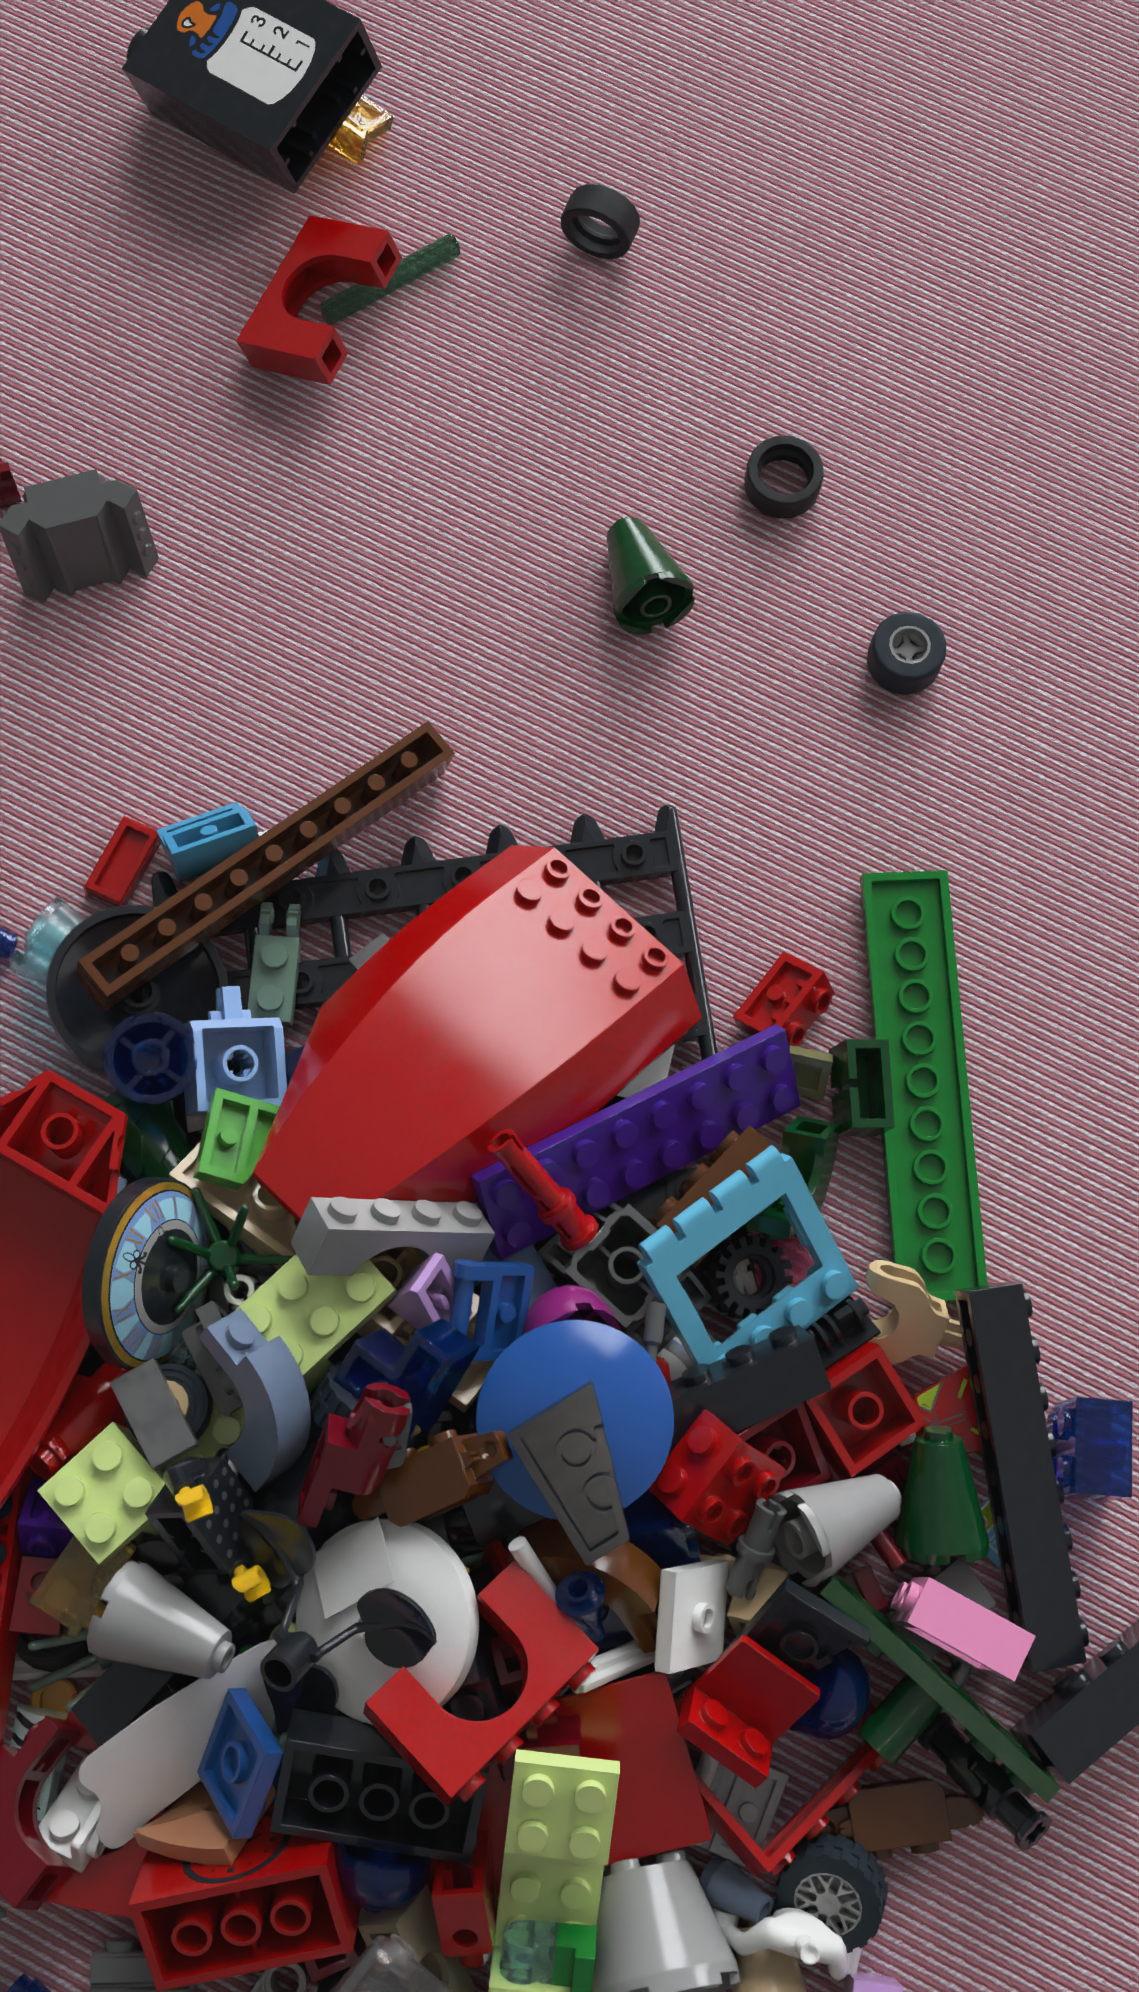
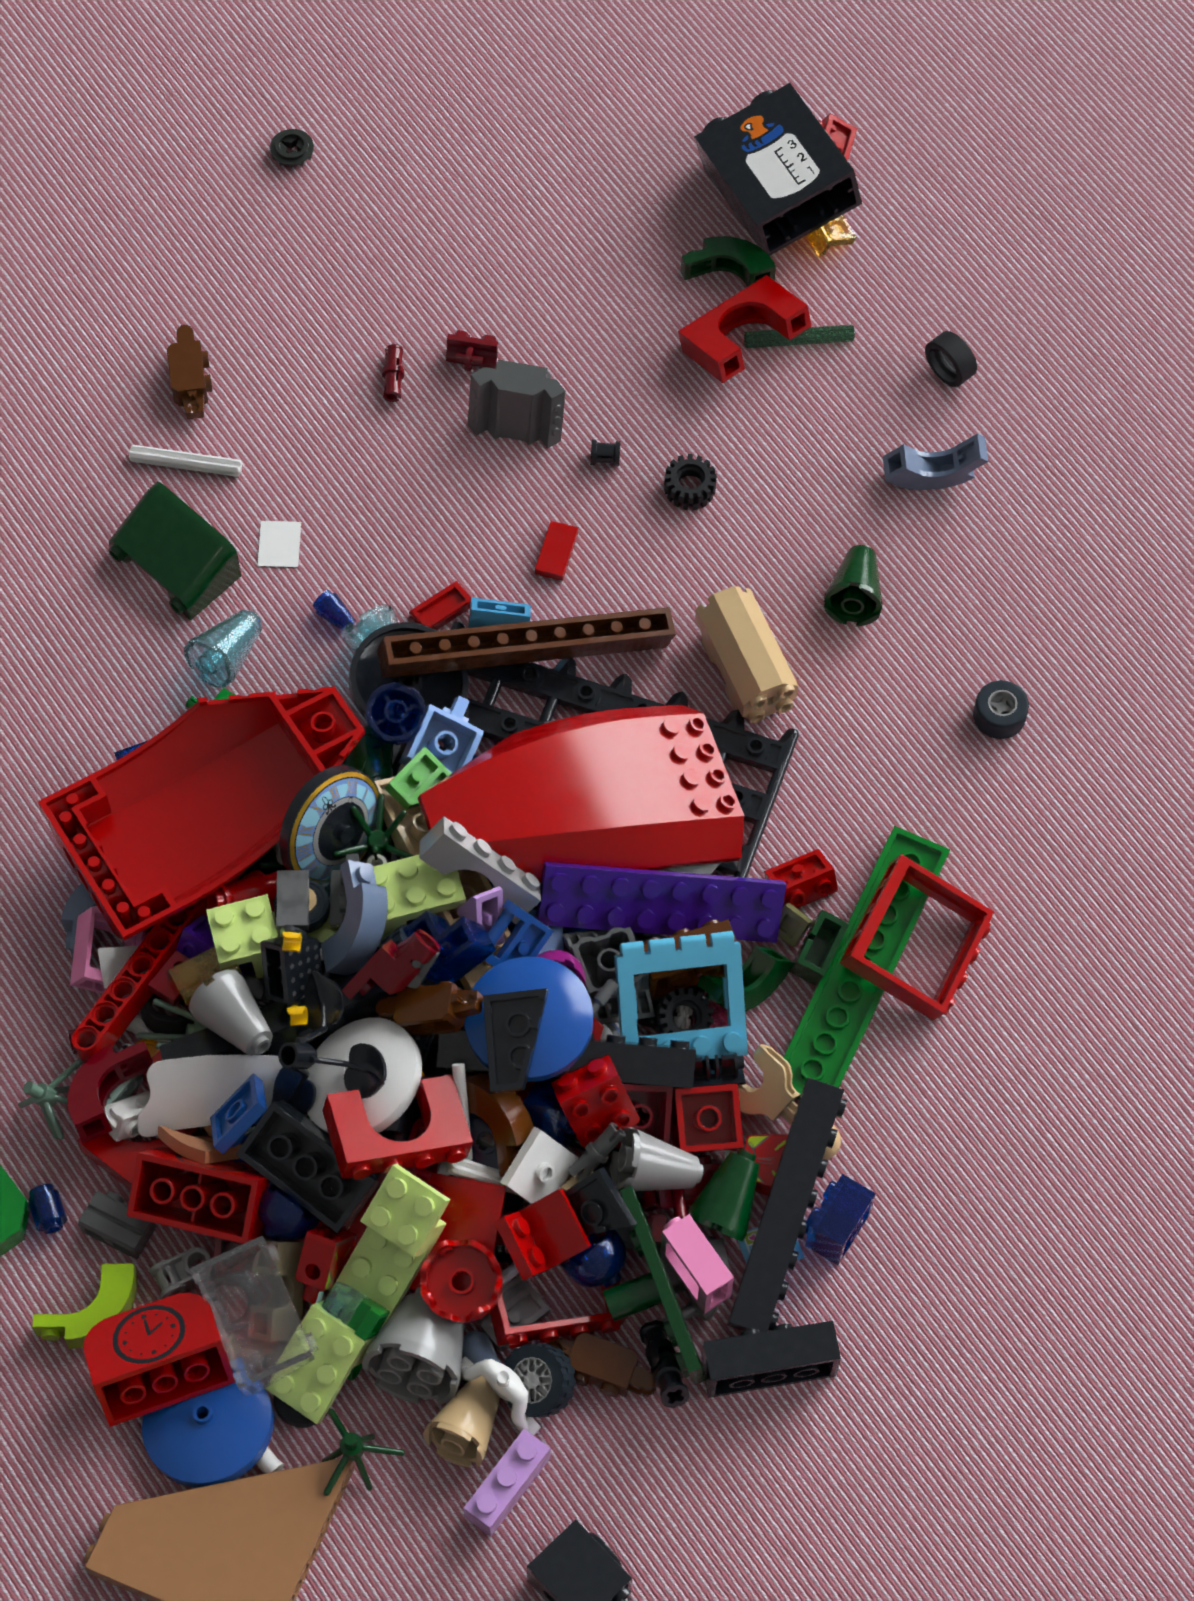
camera: 30 degrees right, 10 degrees down
(227, 548) = (605, 452): none -> black bush
(233, 710) = (556, 550): none -> red tile
(247, 211) = (728, 255): none -> dark green arch
(275, 967) = (499, 705): sand green hinge -> none
(352, 1568) = (358, 1032): white sticker -> none
(357, 515) = (694, 468): none -> black tyre
(554, 1203) = (584, 902): red pin -> none
(559, 736) = (746, 654): none -> tan brick
(582, 1599) = (478, 1117): clear blue cone -> none
(642, 383) = (935, 470): none -> sand blue arch
(682, 1875) = (454, 1258): none -> red plate
(791, 450) = (988, 549): black tyre -> none
(916, 1014) = (944, 893): none -> red window

